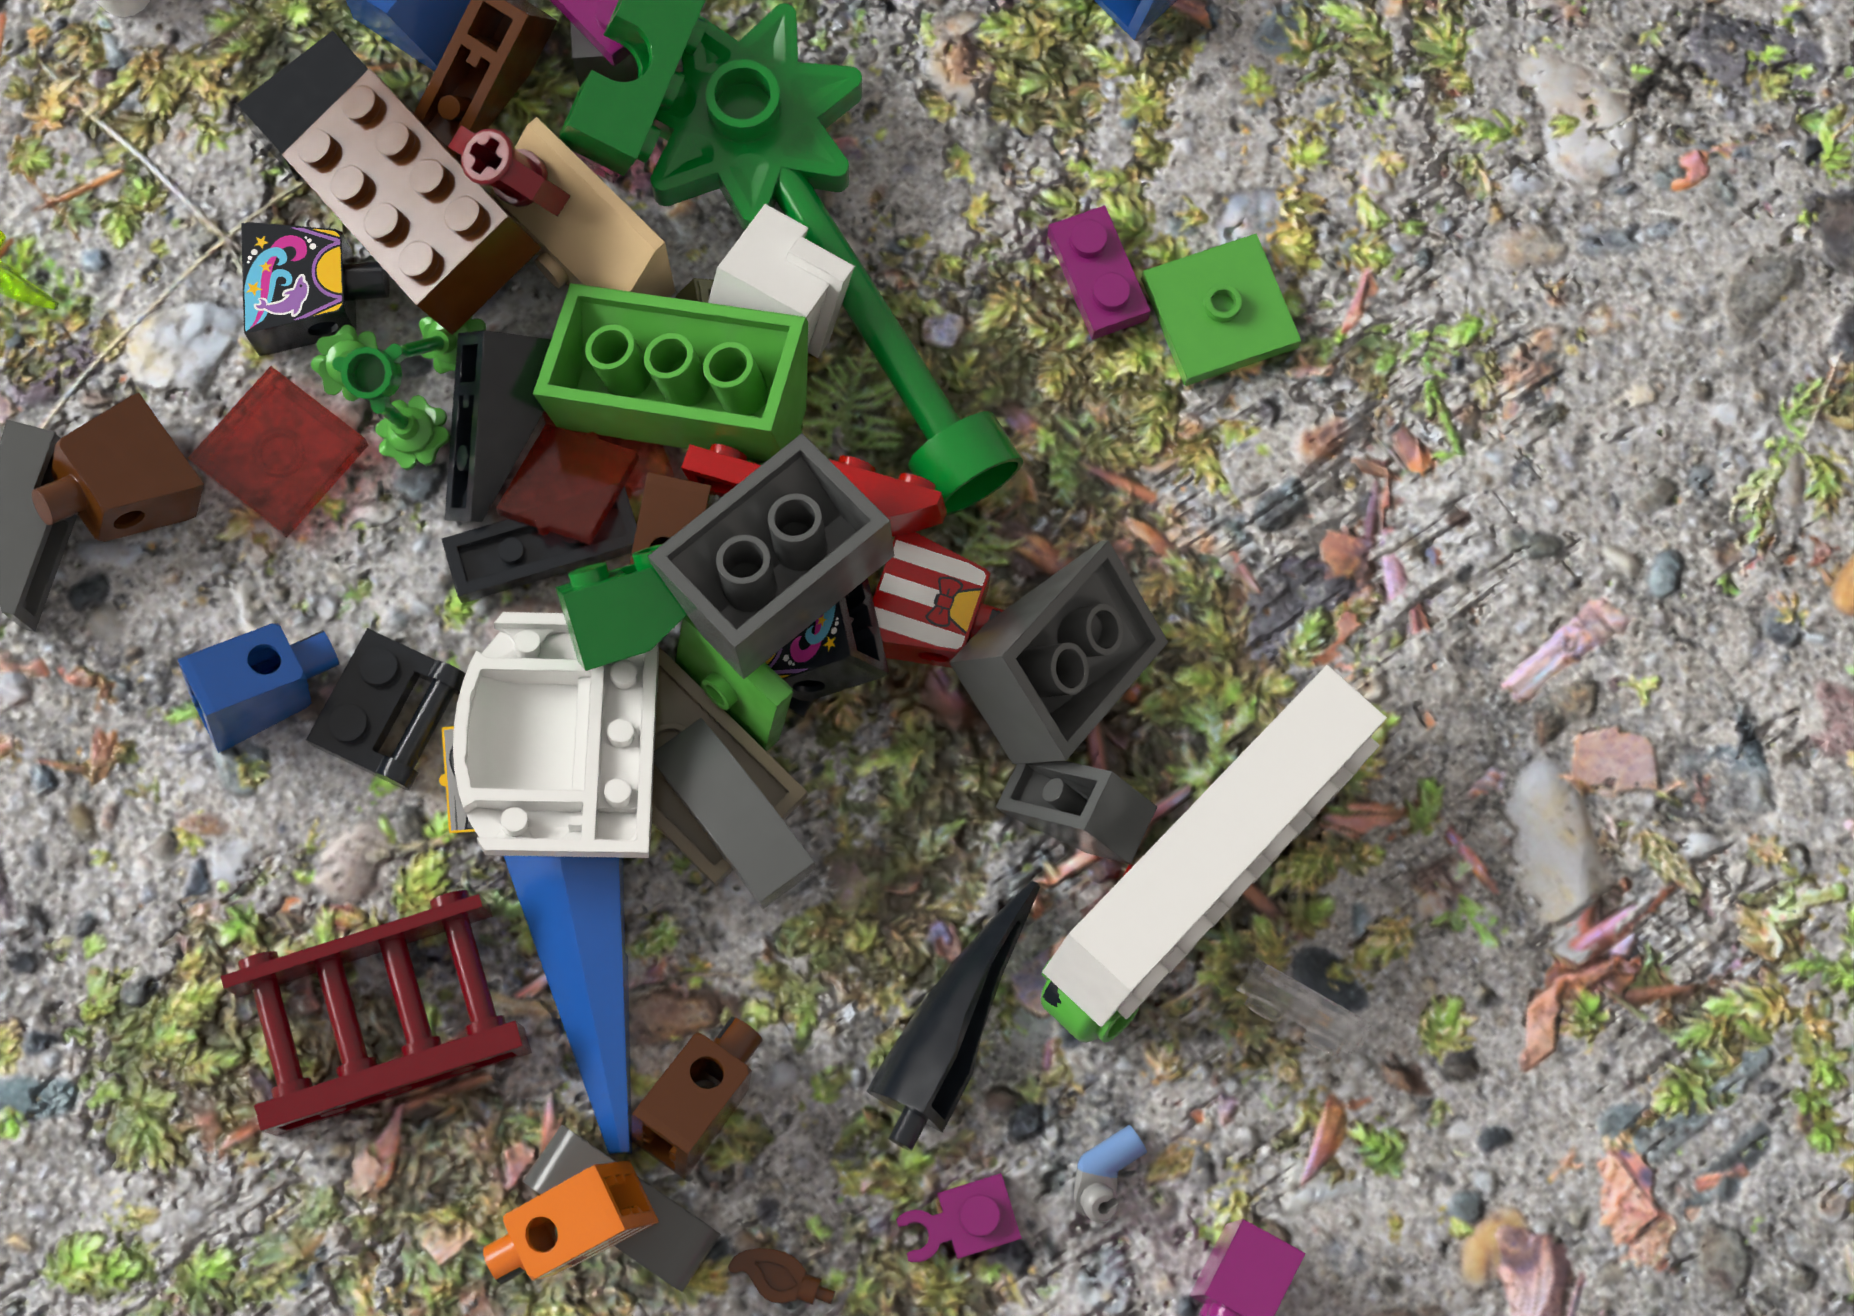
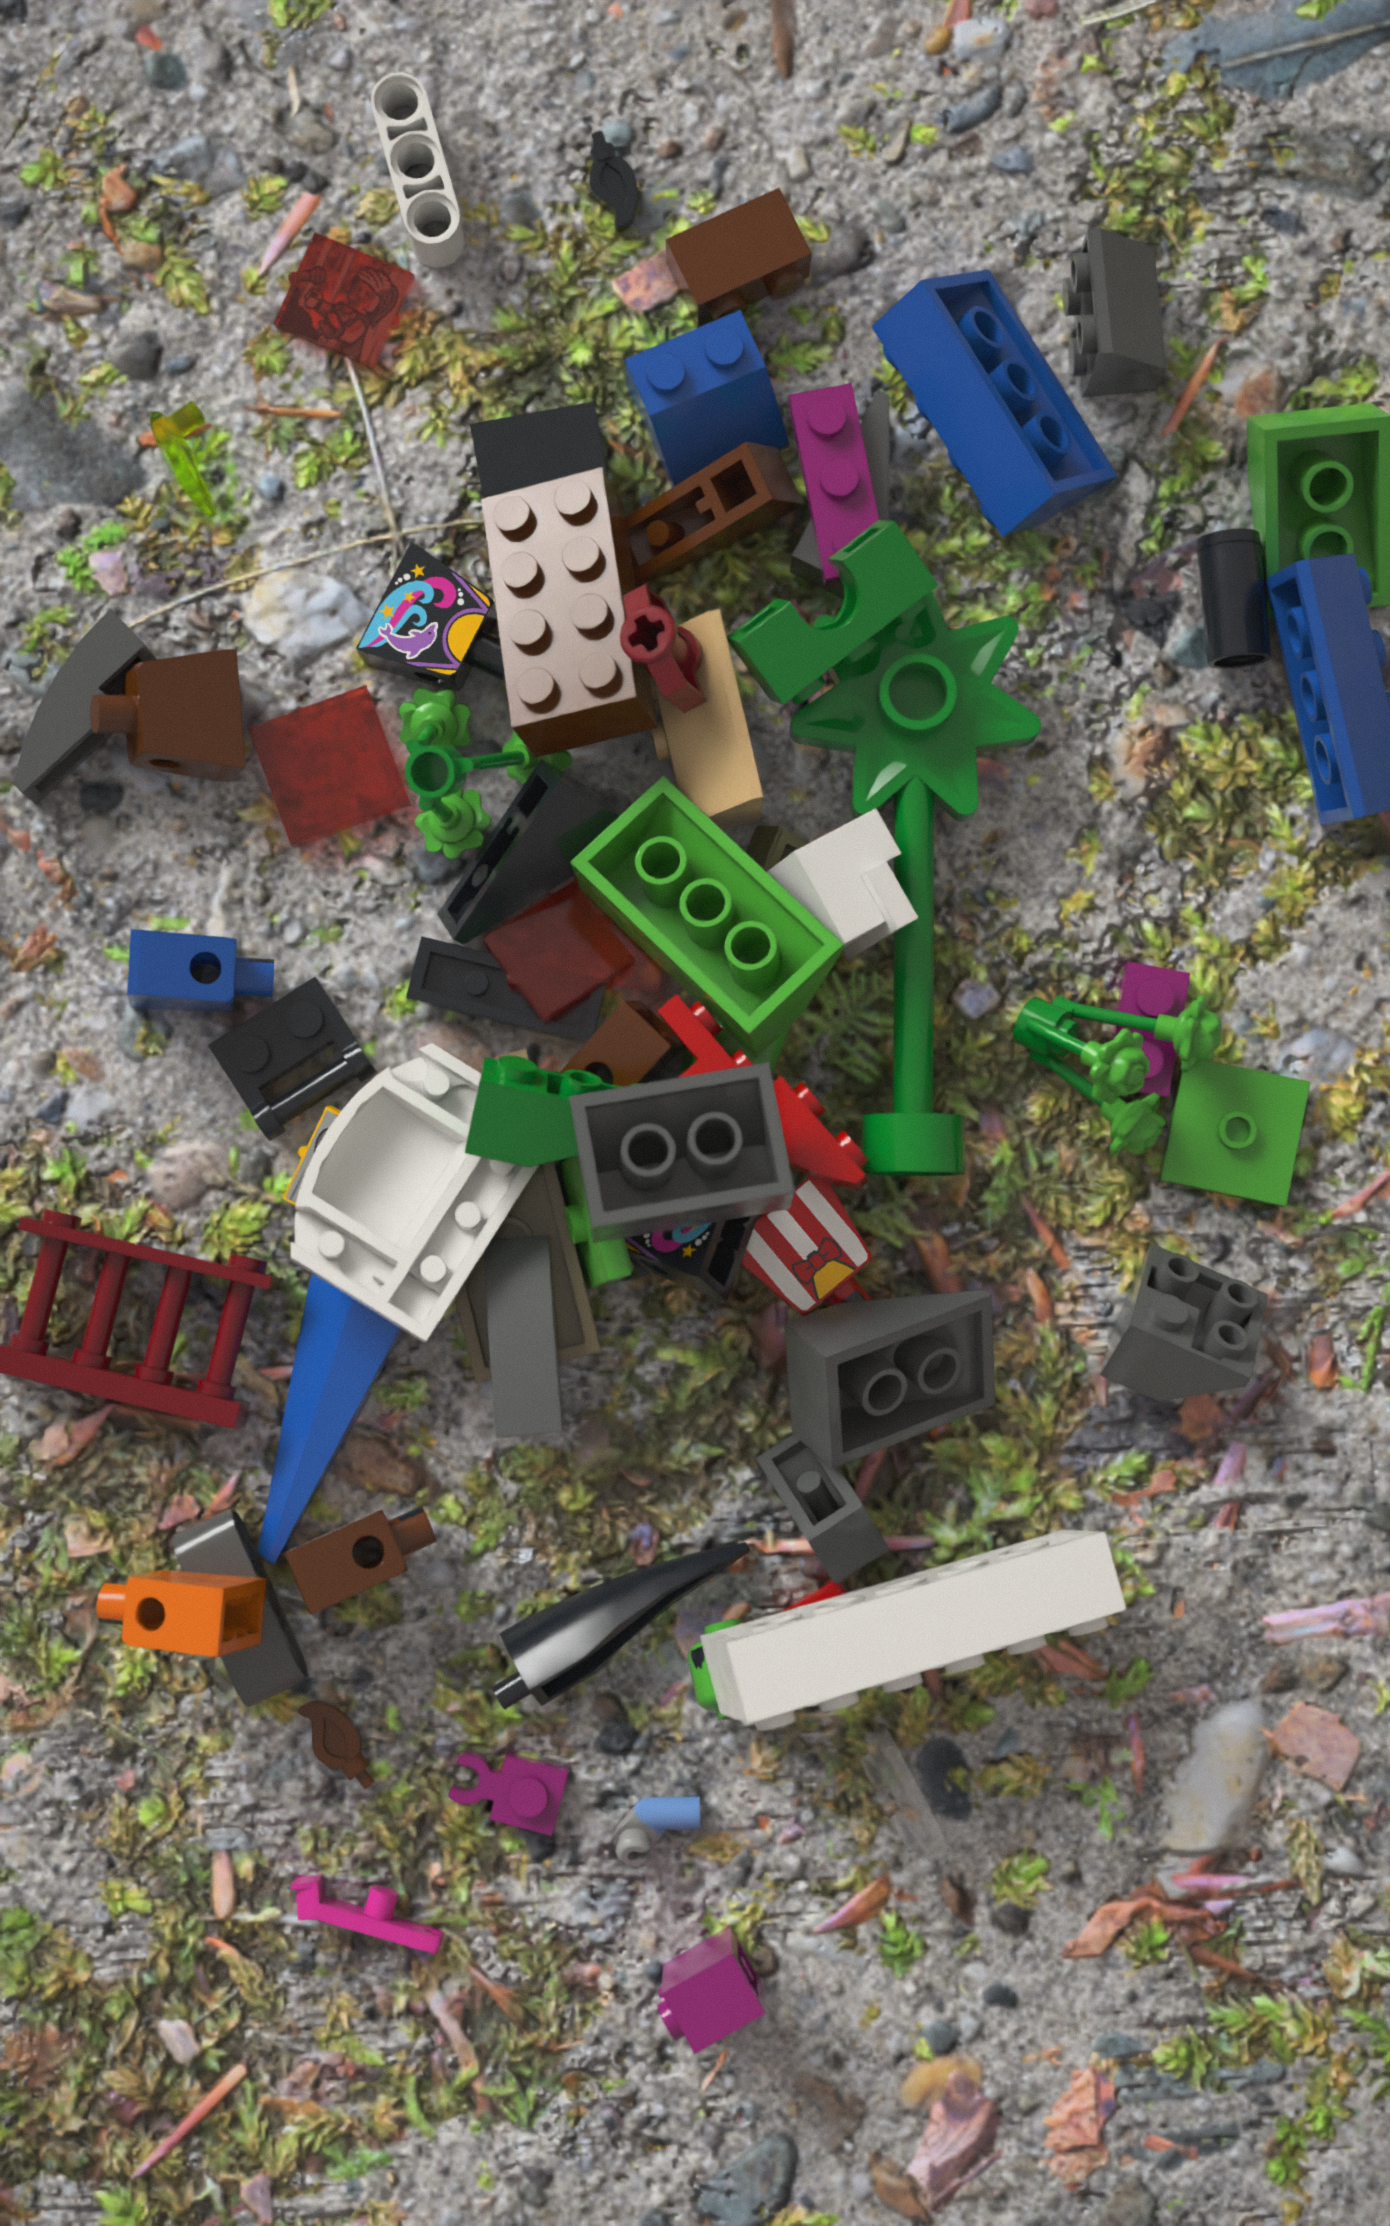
camera: 35 degrees right, 10 degrees up
(72, 79) = (344, 300): none -> clear red piece
(1096, 292) = (1118, 1064): none -> bright green plant
(1283, 484) = (1184, 1330): none -> dark grey slope

